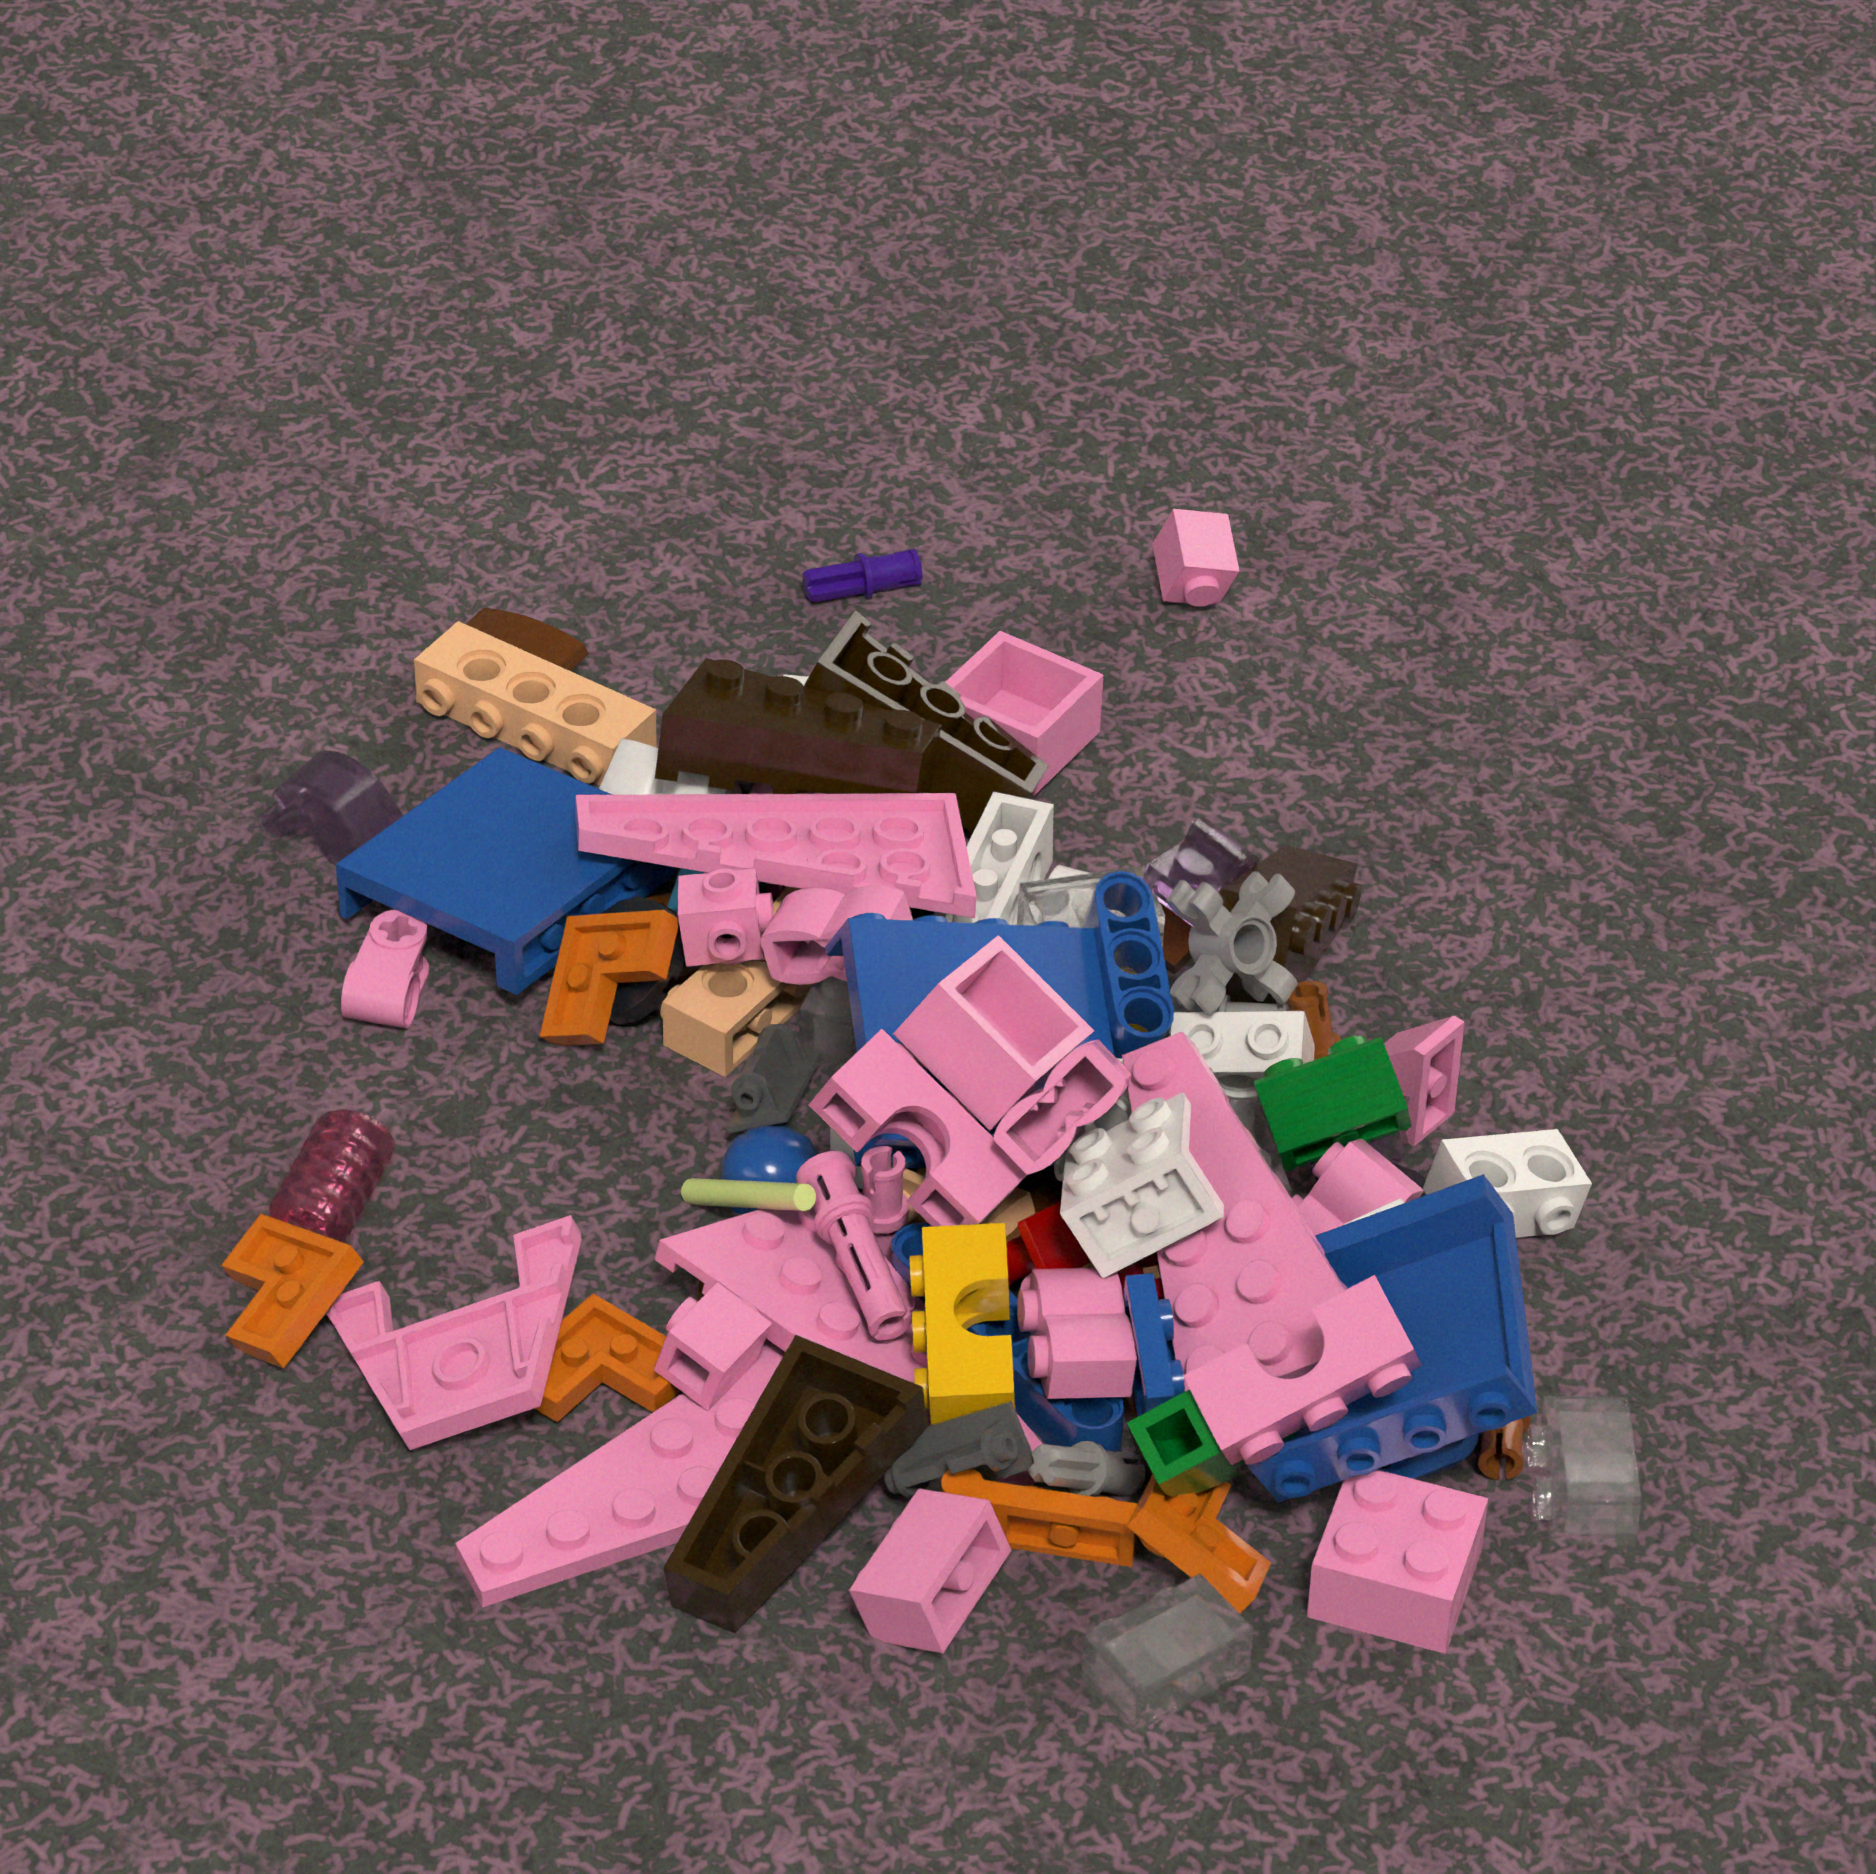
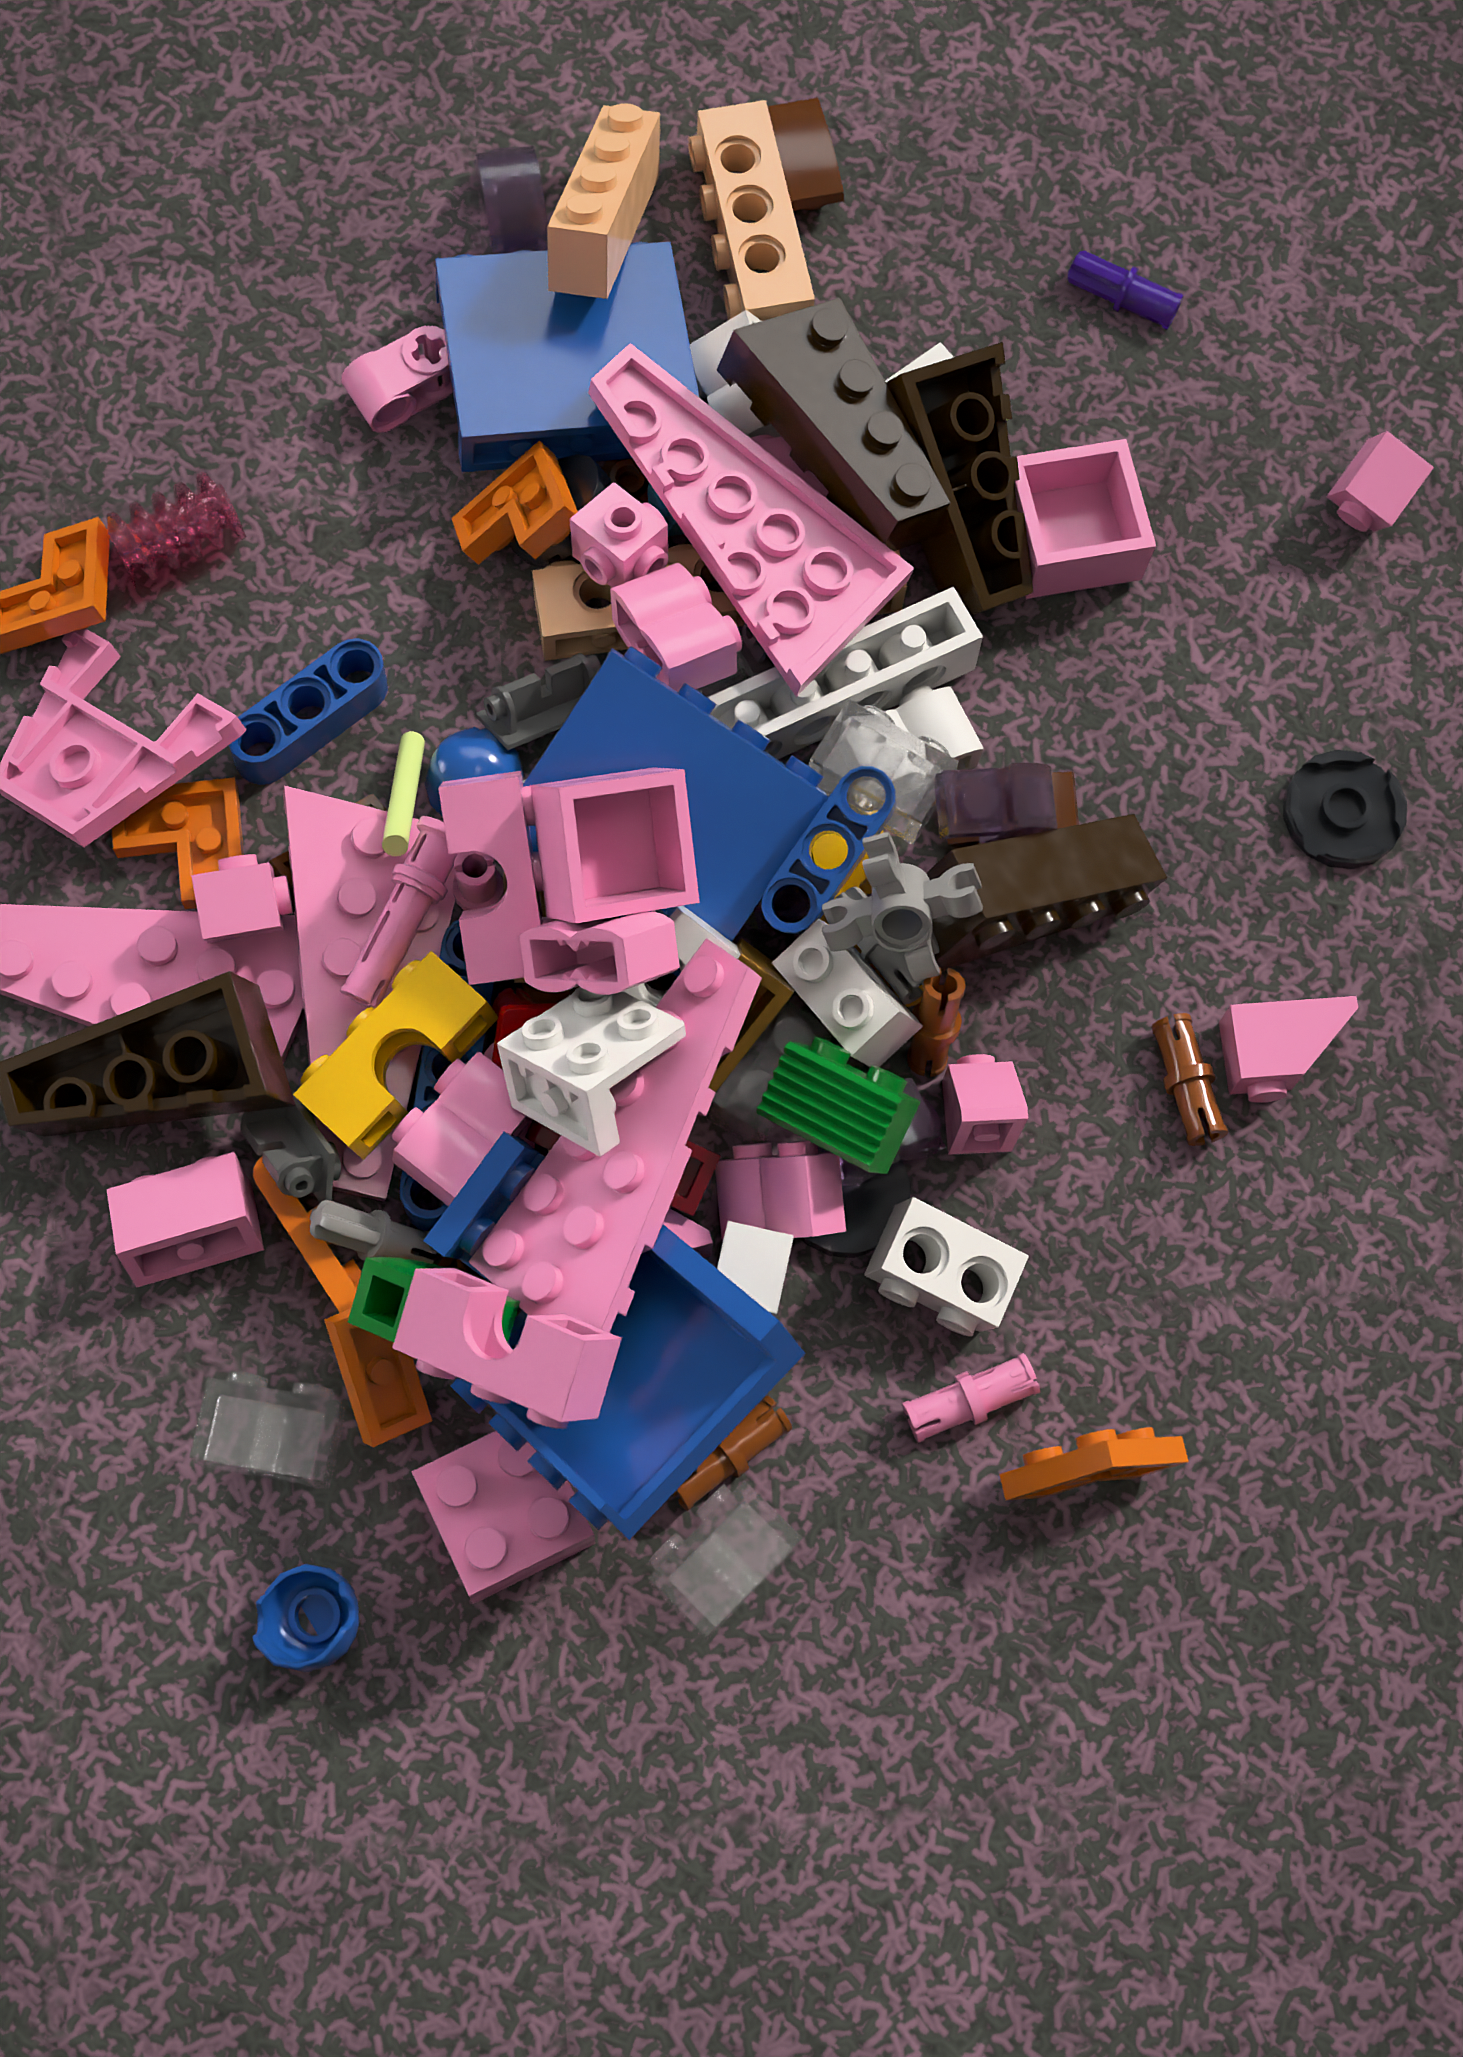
camera: 40 degrees right, 30 degrees up
(426, 742) = (603, 201): none -> light nougat brick
(600, 1202) = (316, 685): none -> blue beam
(1352, 1725) = (327, 1603): none -> blue hair
(1412, 778) = (1333, 826): none -> black tile
(1519, 976) = (1189, 1079): none -> dark orange pin
(1549, 910) = (1276, 1042): none -> bright pink slope
(1622, 1257) = (971, 1397): none -> bright pink pin
(1765, 1196) = (1098, 1458): none -> orange plate

